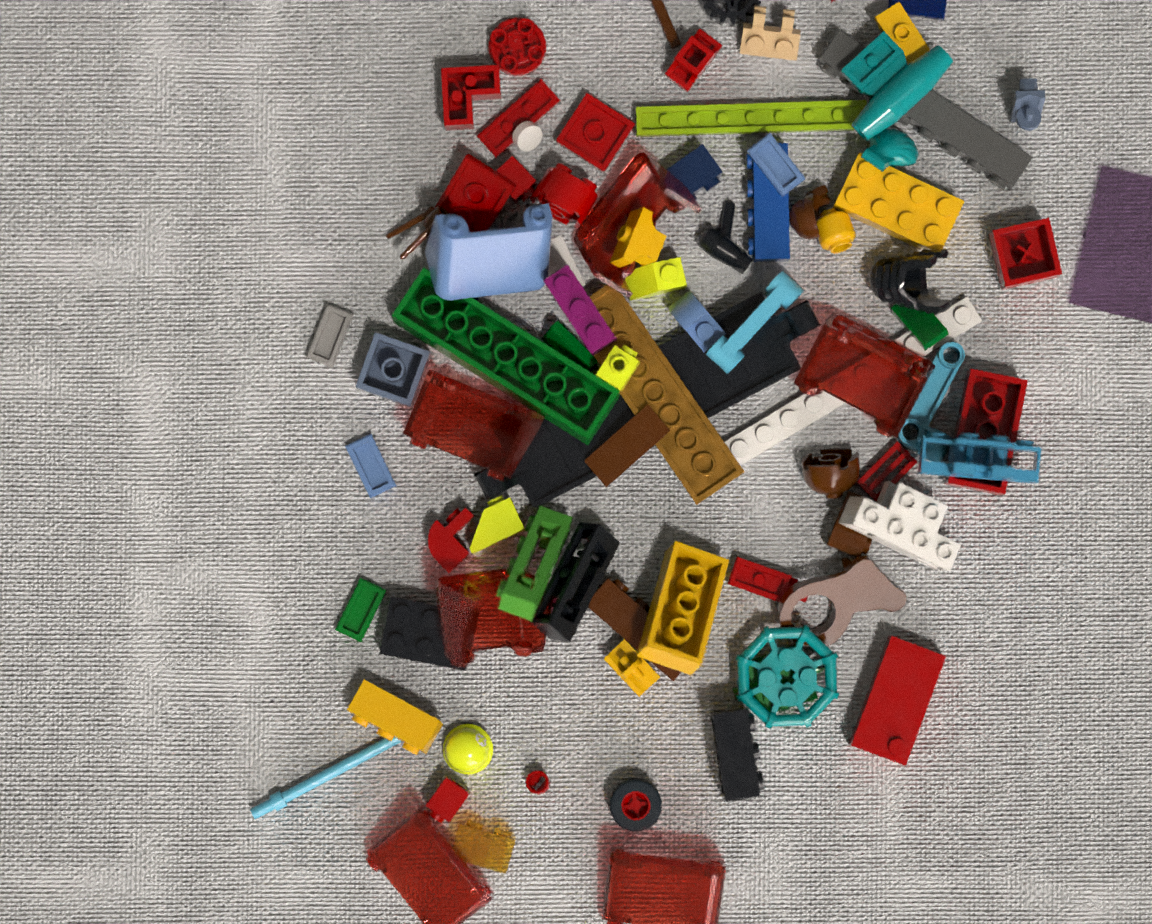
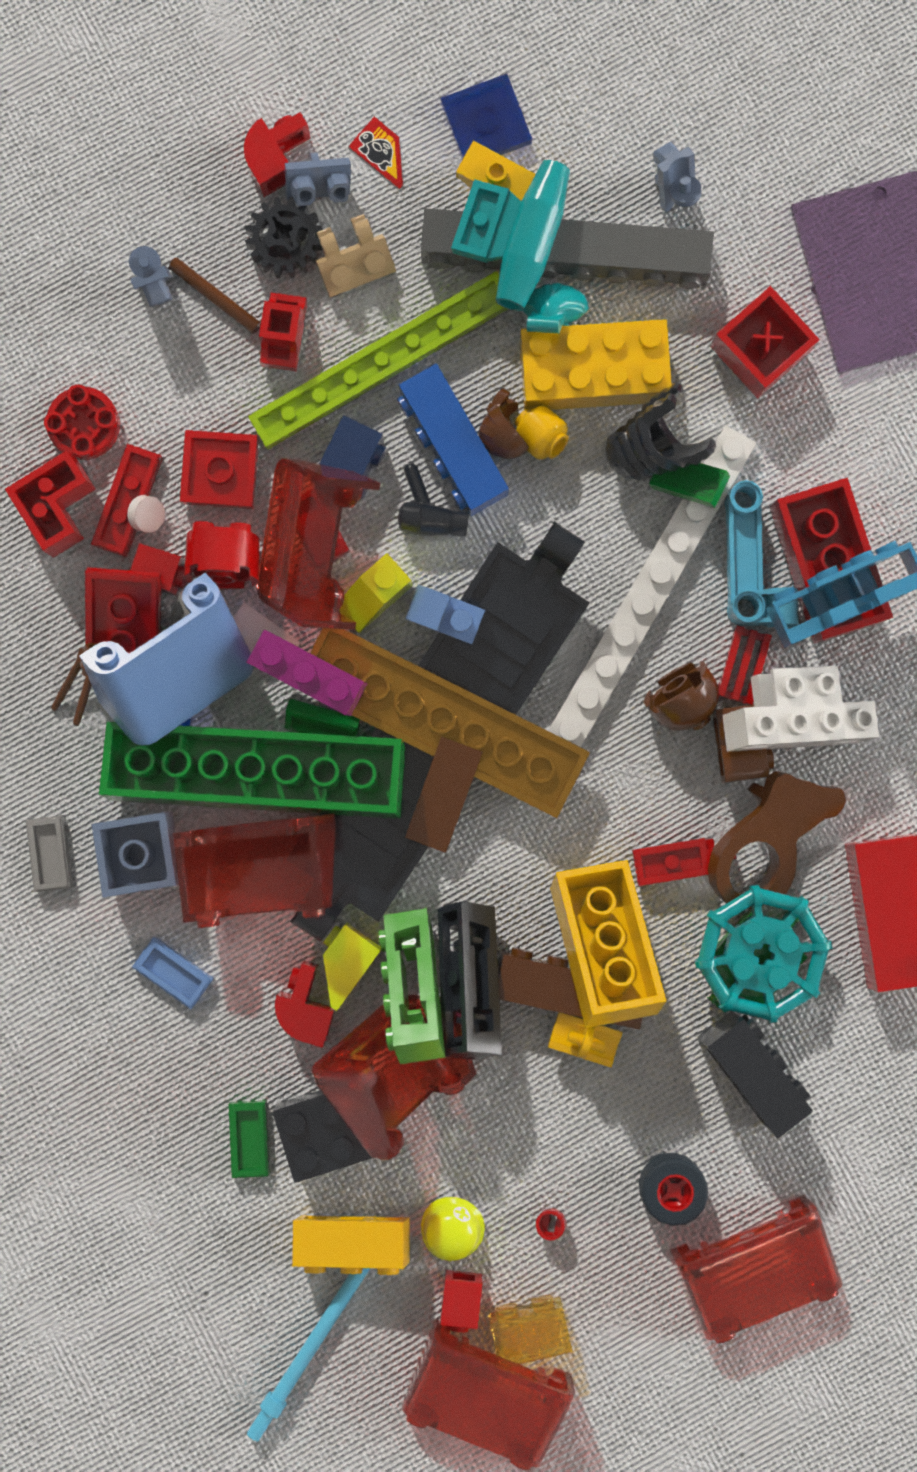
camera: 30 degrees left, 0 degrees up
(619, 367) = (385, 712): neon yellow brick -> none
(638, 240) = (330, 559): yellow brick -> none
(776, 165) = (436, 393): medium blue tile -> none
(780, 292) = (520, 531): medium azure piece -> none
(865, 372) = (665, 568): clear red windscreen -> none

